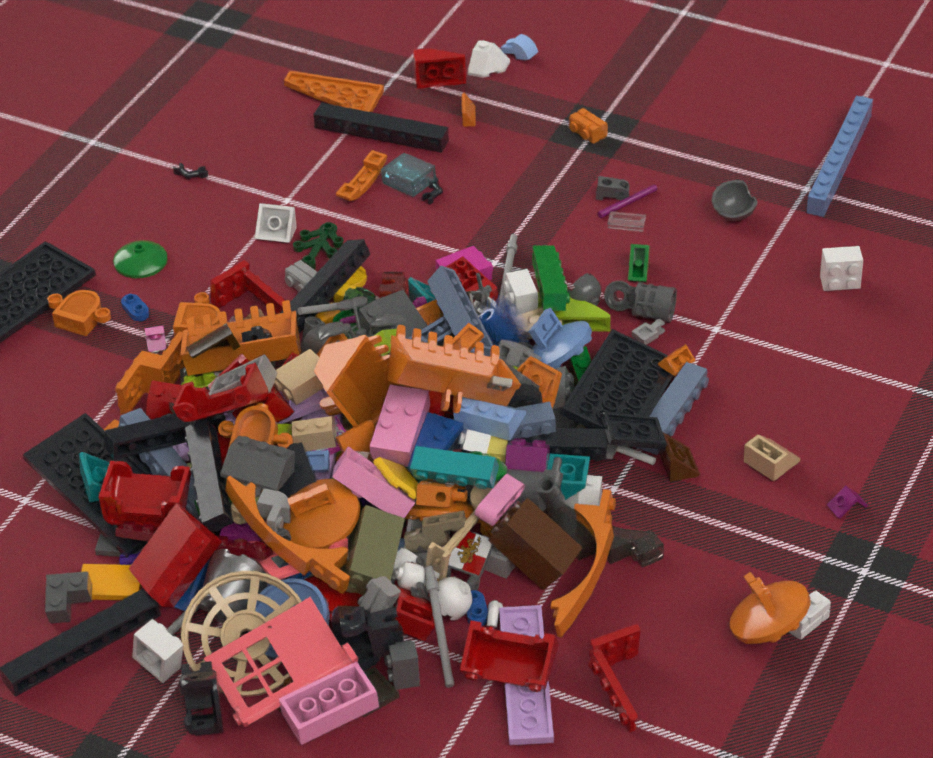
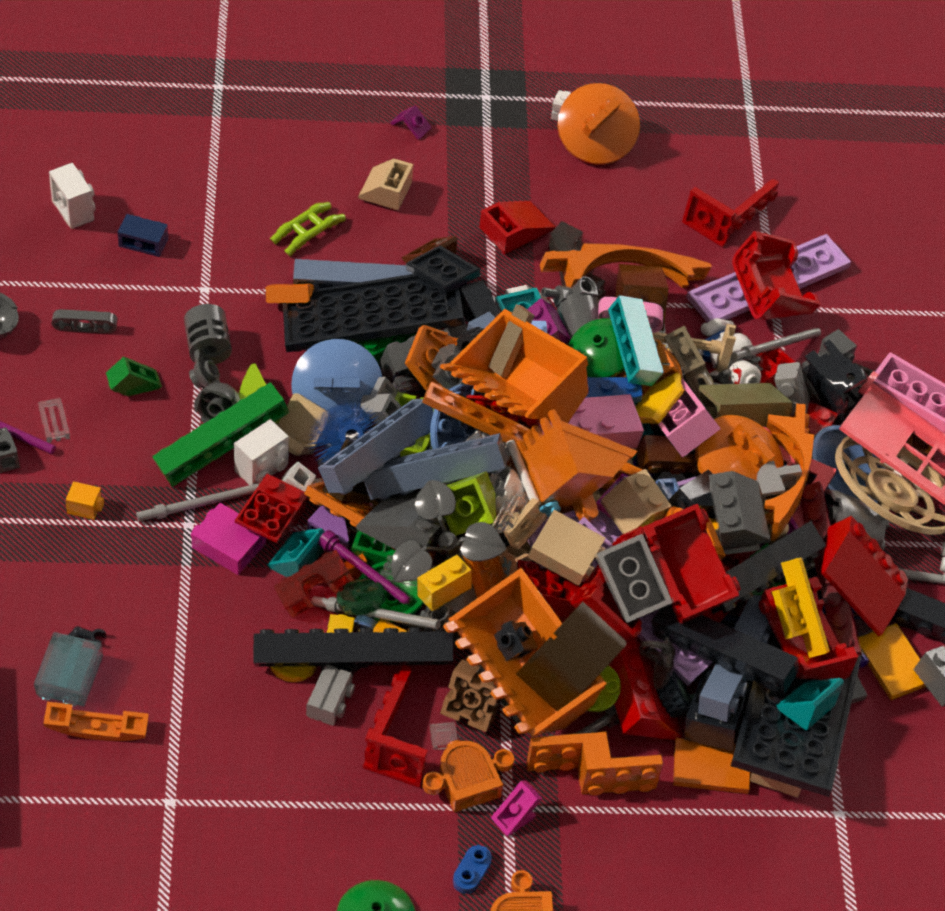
camera: 125 degrees left, 10 degrees up
(160, 478) = (798, 609): none -> yellow bracket
(275, 223) = (242, 777): white slope -> none
(326, 230) = (249, 715): dark green plant -> none
(326, 313) = (444, 582): none -> yellow brick
(481, 294) = (300, 471): dark grey plant -> none
(541, 213) = (84, 500): none -> light orange brick
(647, 333) = (248, 336): light grey plate -> none
(682, 520) = (513, 224): none -> red slope
(710, 253) = (99, 321): none -> dark grey beam
(747, 405) = (305, 235): none -> lime piece
(785, 303) = (143, 235): none -> dark blue brick

